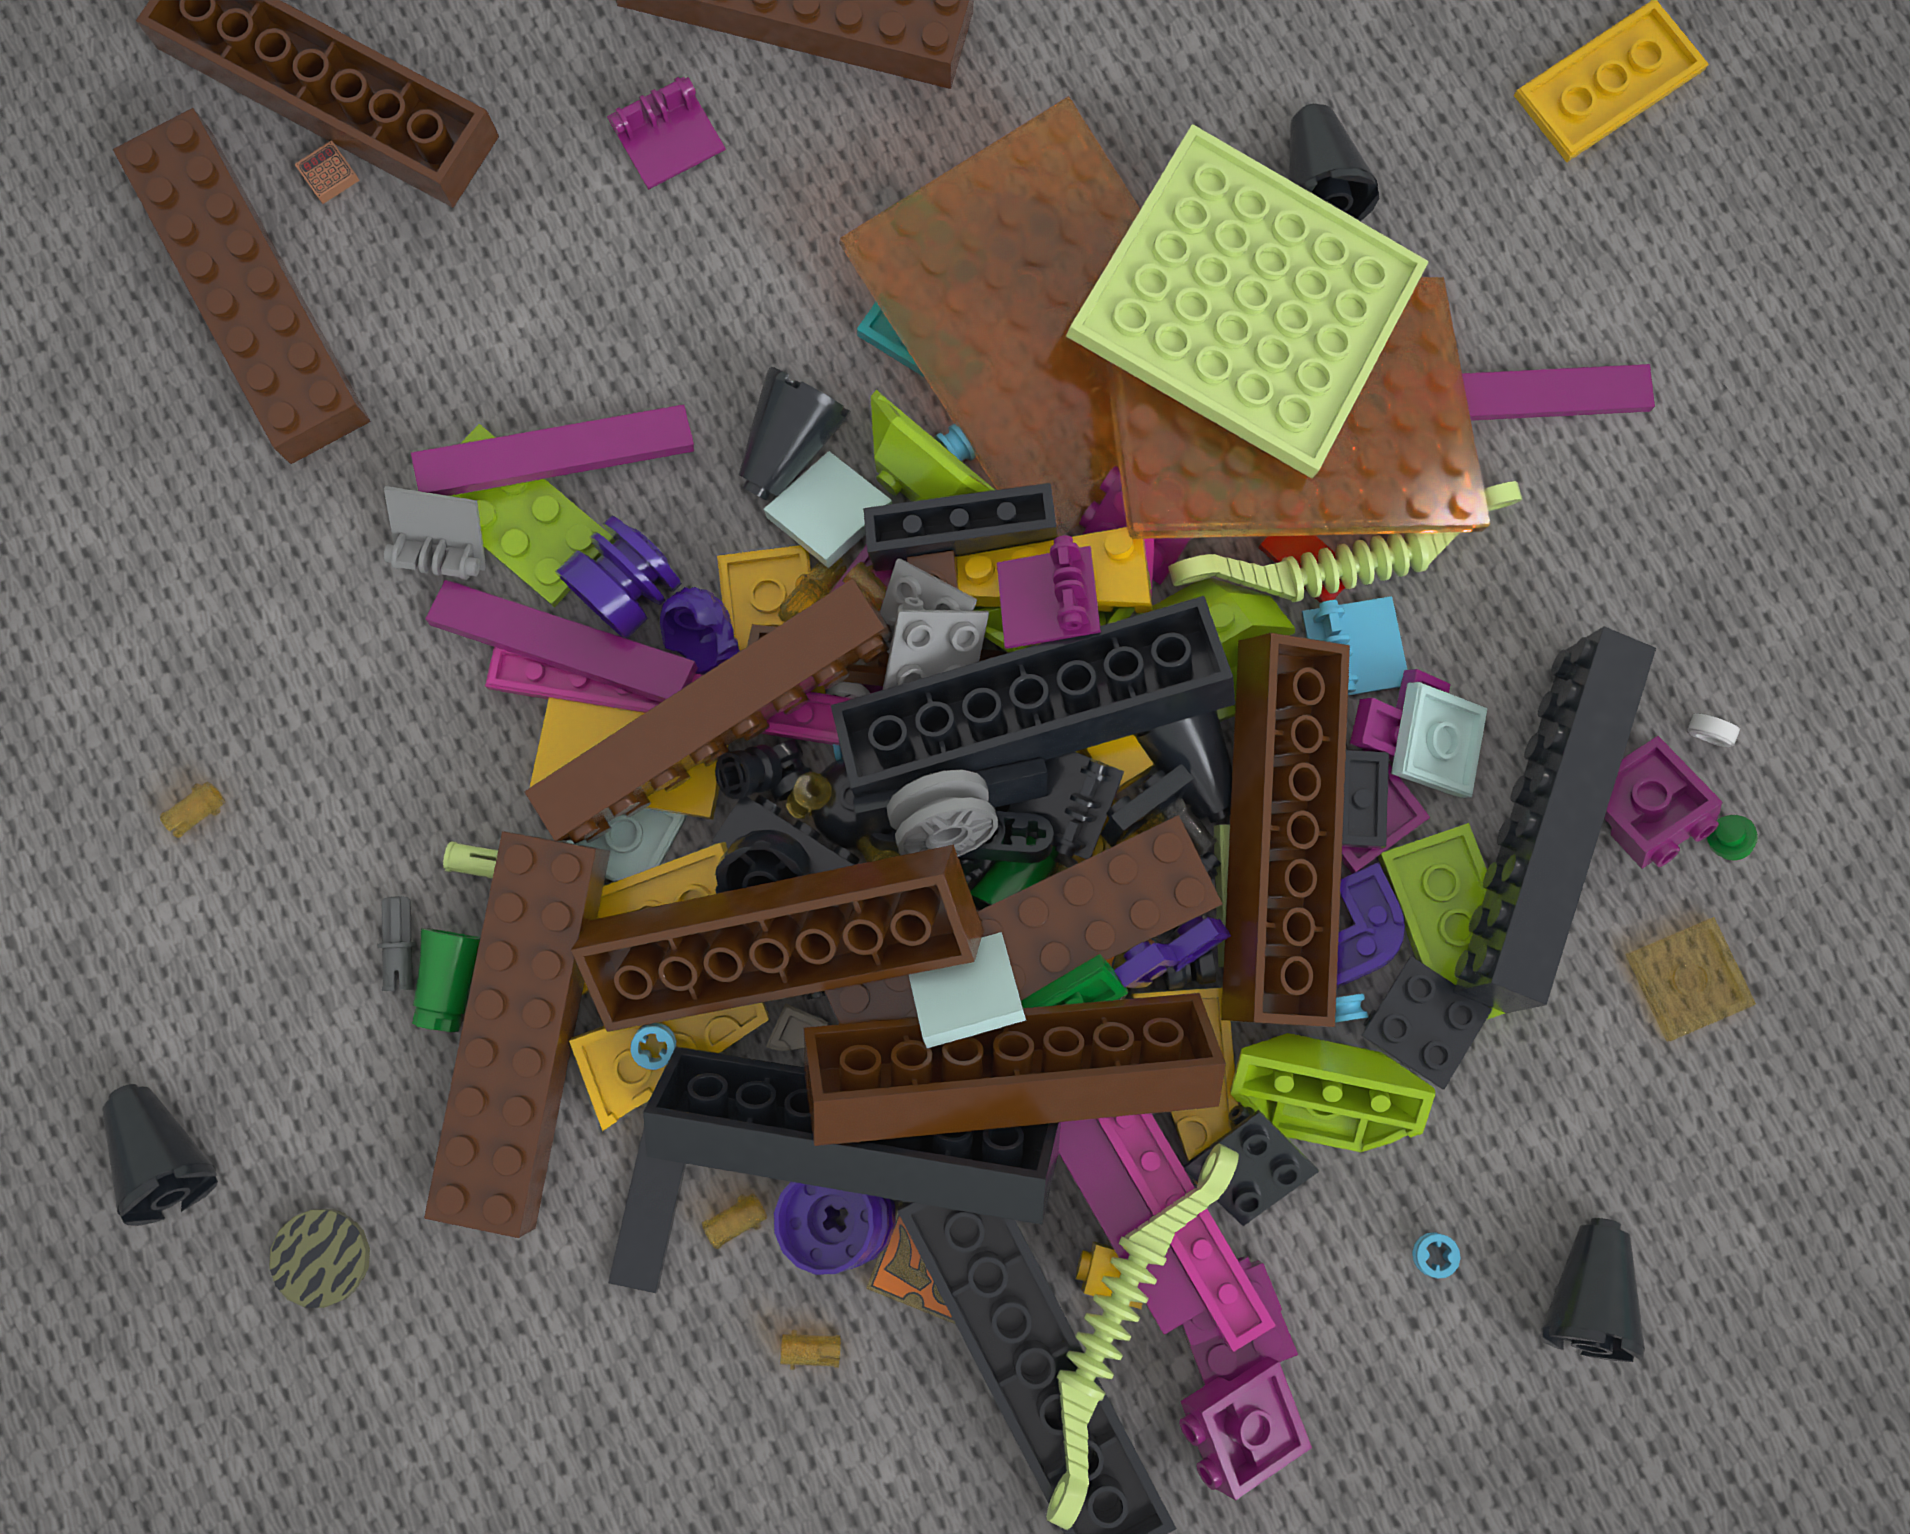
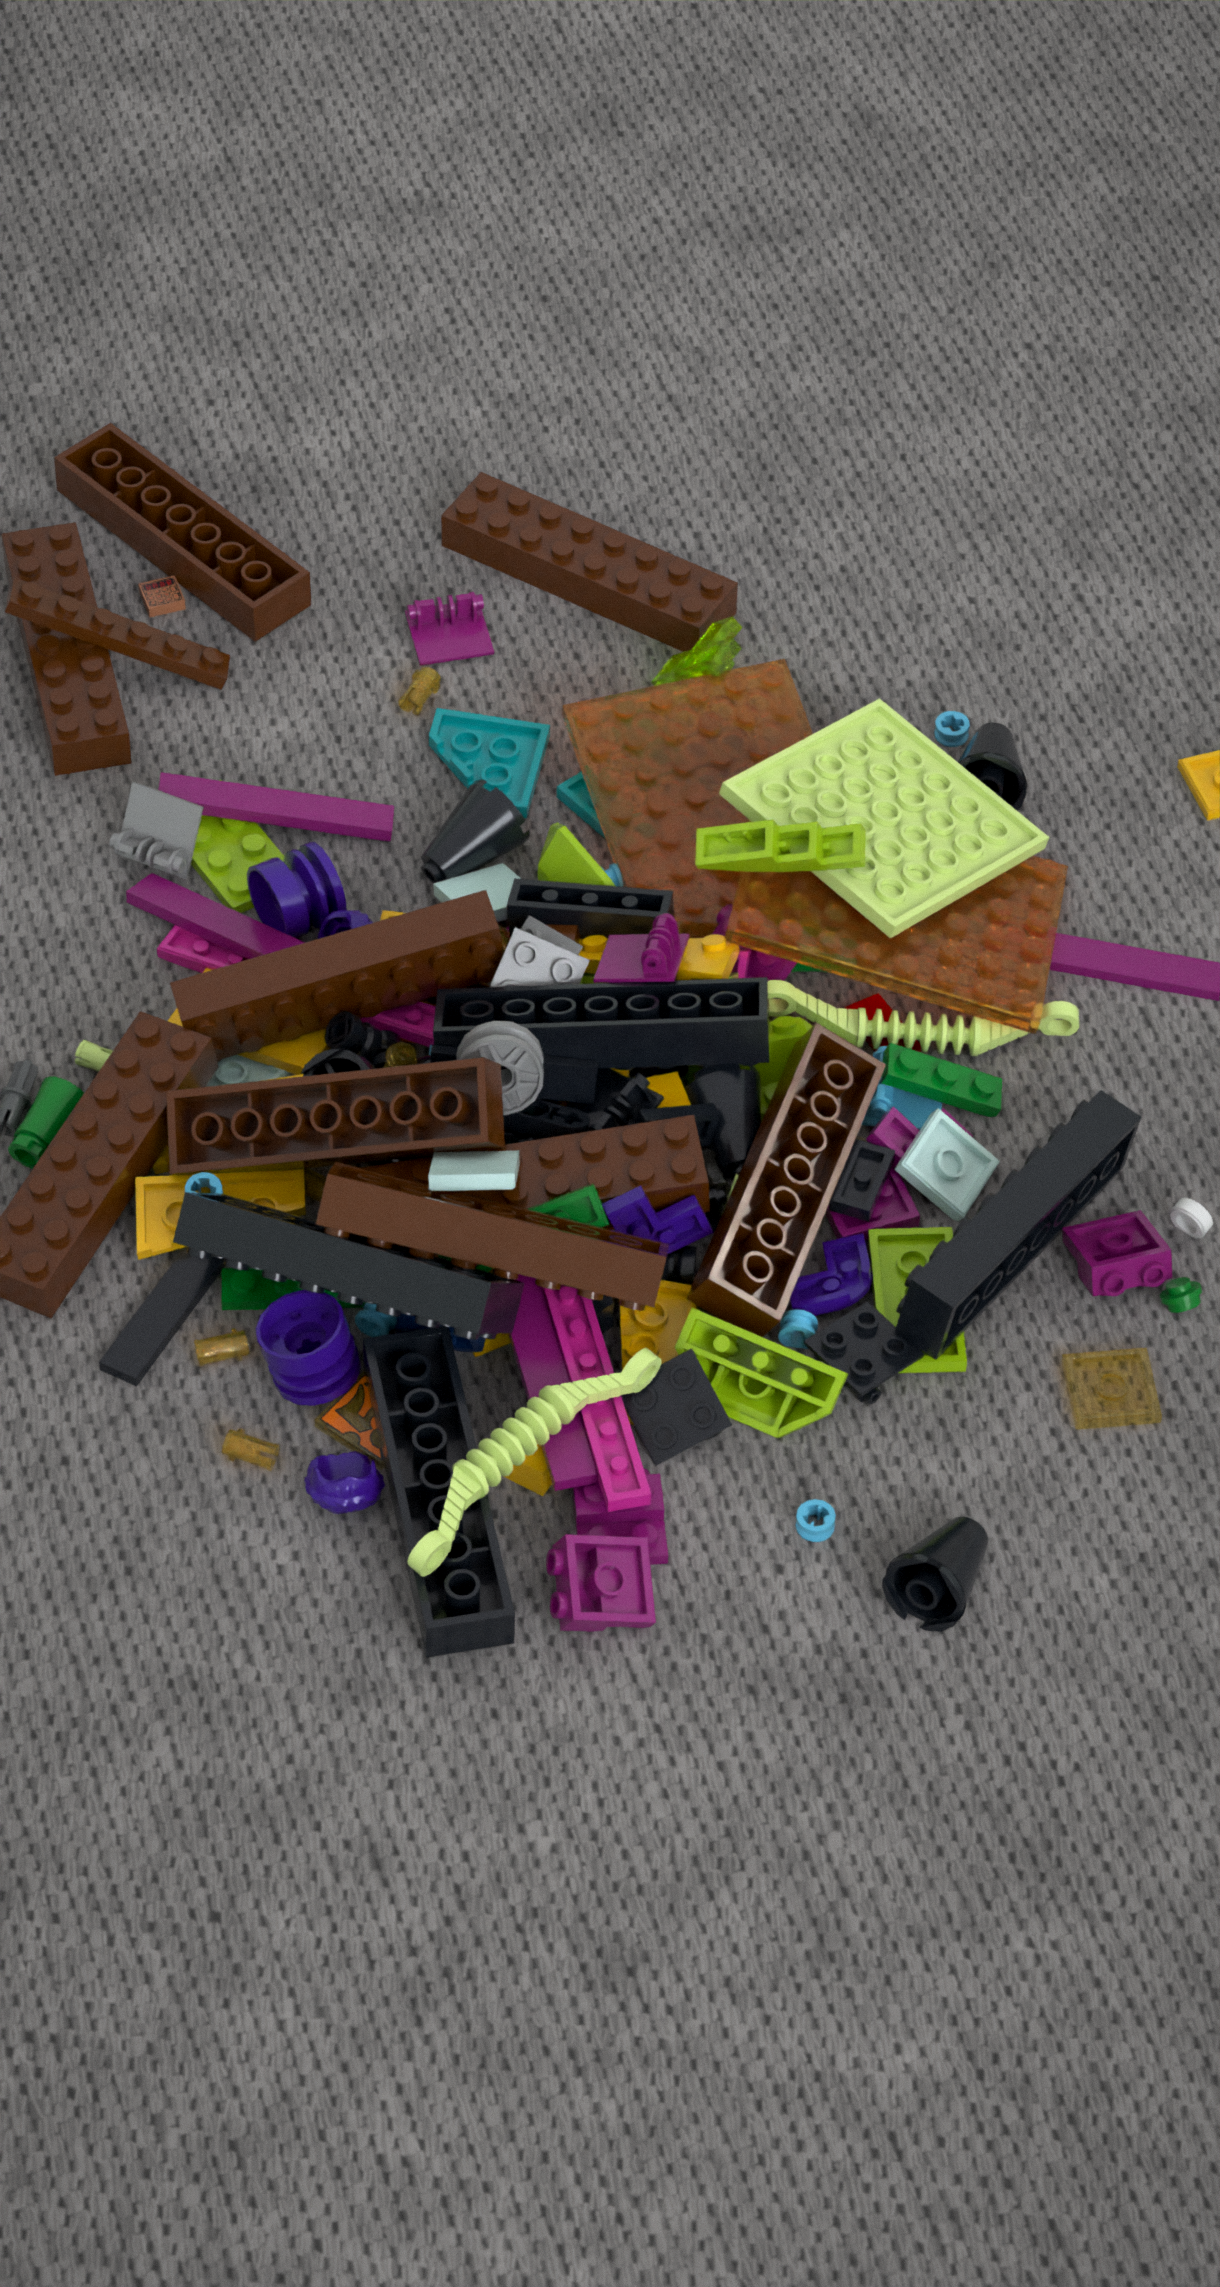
camera: 15 degrees right, 30 degrees down
(291, 265) = (117, 633): none -> reddish brown plate
(660, 228) = (423, 685): none -> clear yellow pin
(770, 302) = (491, 749): none -> teal plate
(927, 1373) = (344, 1482): none -> dark purple hair
(970, 117) = (709, 656): none -> clear neon green plate
(1164, 404) = (784, 848): none -> lime slope
(1261, 102) = (948, 737): none -> medium azure bush
(1401, 625) = (942, 1080): none -> green plate

